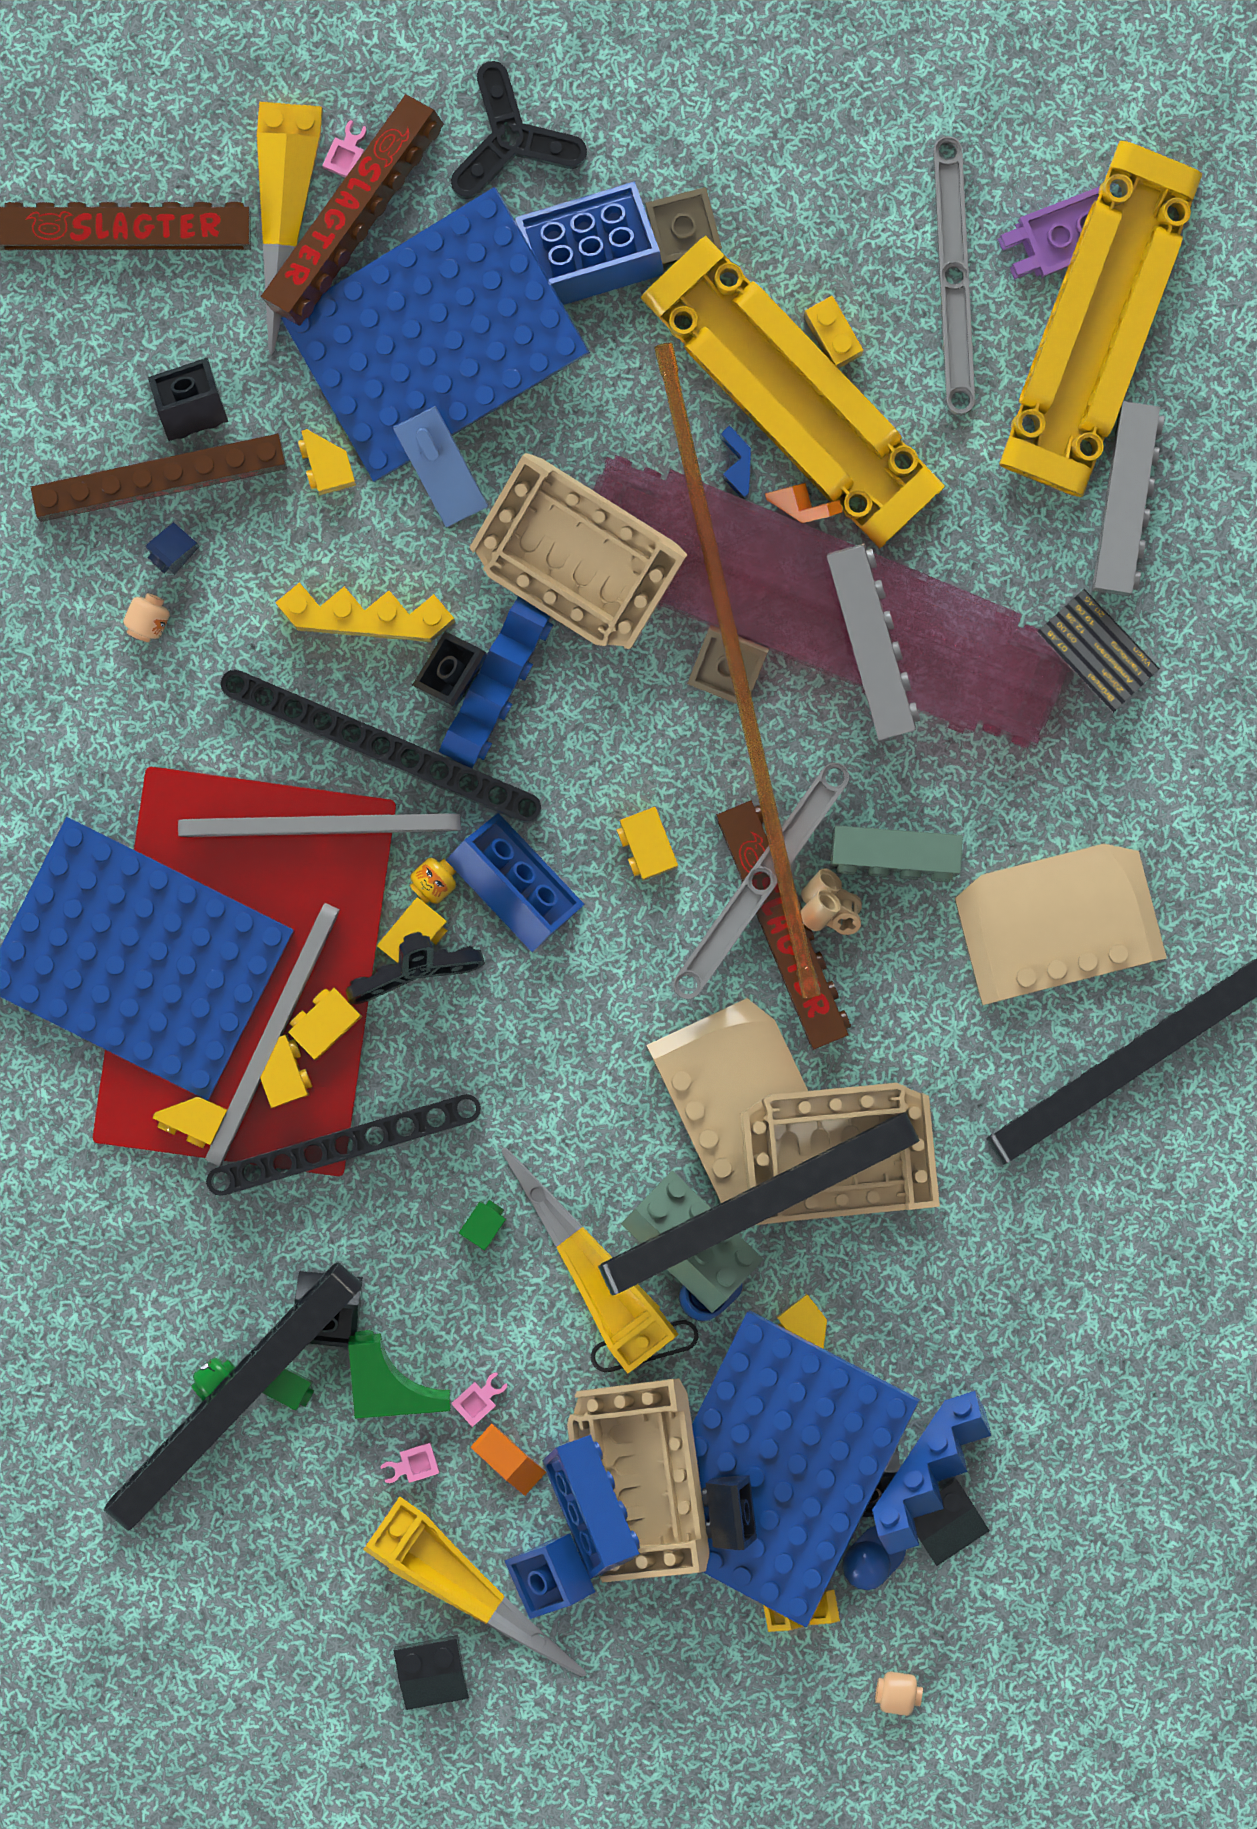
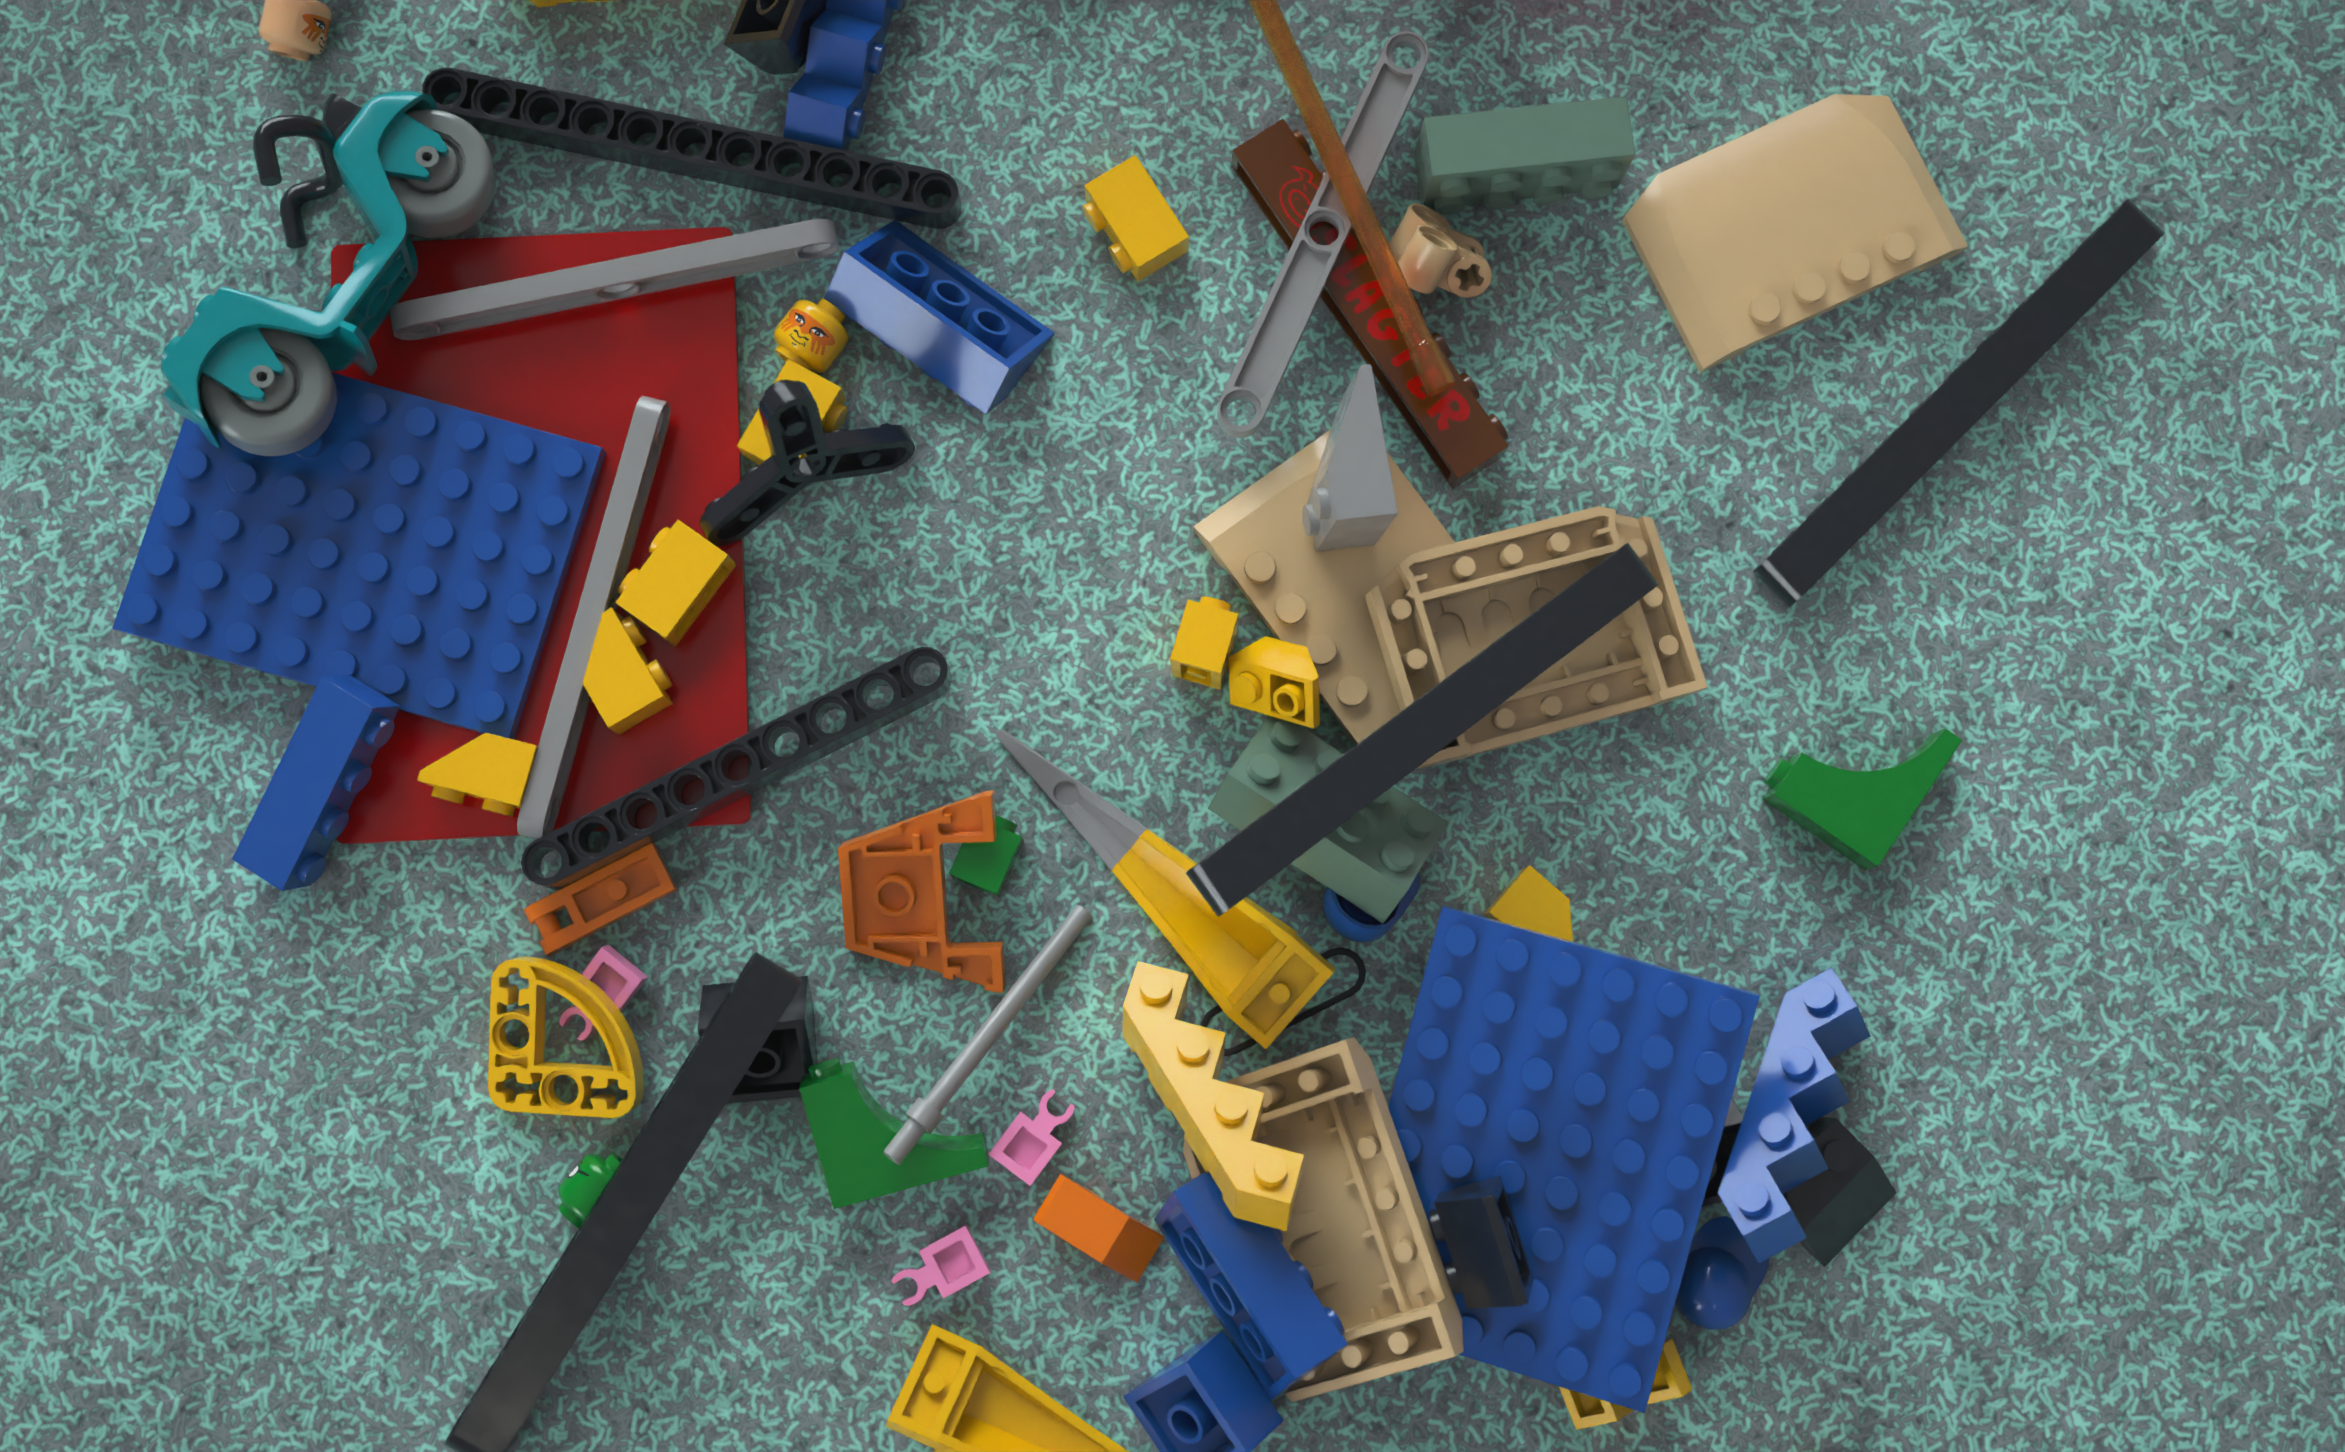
camera: 10 degrees left, 5 degrees down
(91, 1106) = (316, 782): none -> blue brick
(186, 1295) = (529, 1061): none -> yellow beam
(203, 738) = (266, 365): none -> piece
(239, 1260) = (615, 977): none -> bright pink plate
(247, 1206) = (602, 898): none -> orange plate
(290, 1389) = (719, 1180): green brick -> none
(419, 1373) = (925, 1113): none -> light grey bar
(426, 1236) = (898, 893): none -> orange wing
(588, 1408) = (1217, 1117): none -> yellow brick
(639, 1122) = (1204, 642): none -> yellow brick
(676, 1154) = (1276, 681): none -> yellow slope
(744, 1045) = (1353, 485): none -> light grey slope
(1014, 1297) = (1858, 809): none -> green arch

